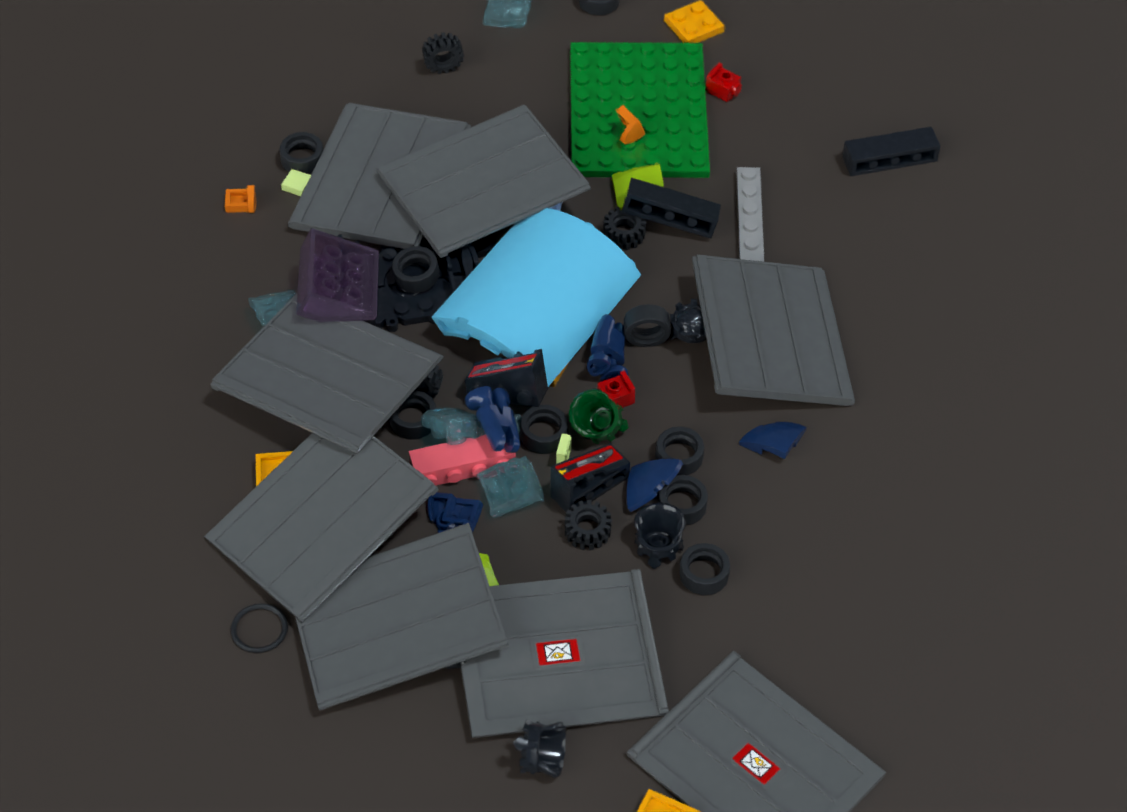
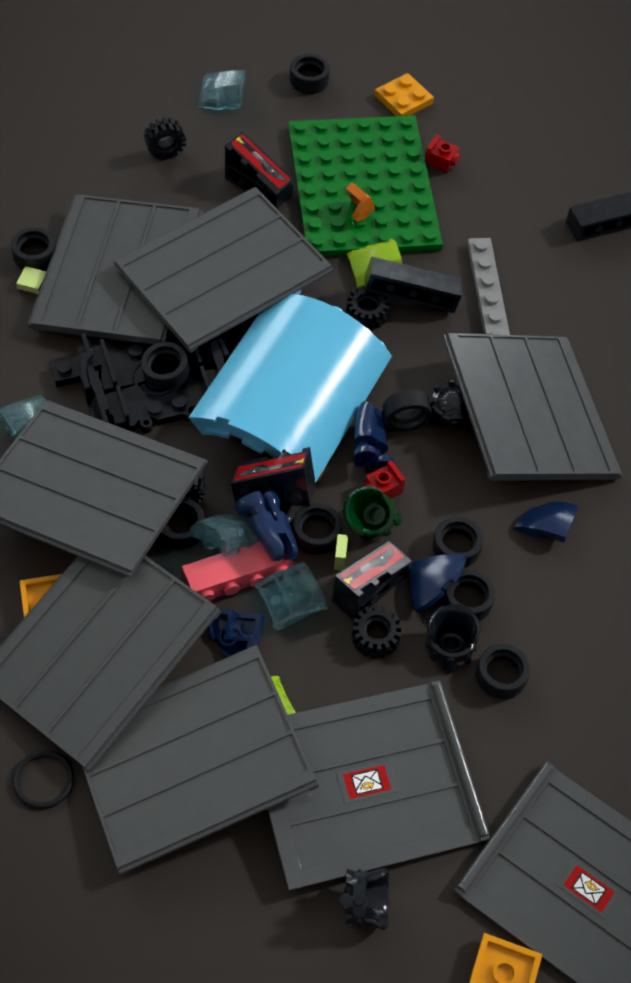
camera: 10 degrees left, 5 degrees up
(336, 279) = (86, 384): clear purple slope -> none
(525, 85) = (252, 168): none -> black wedge

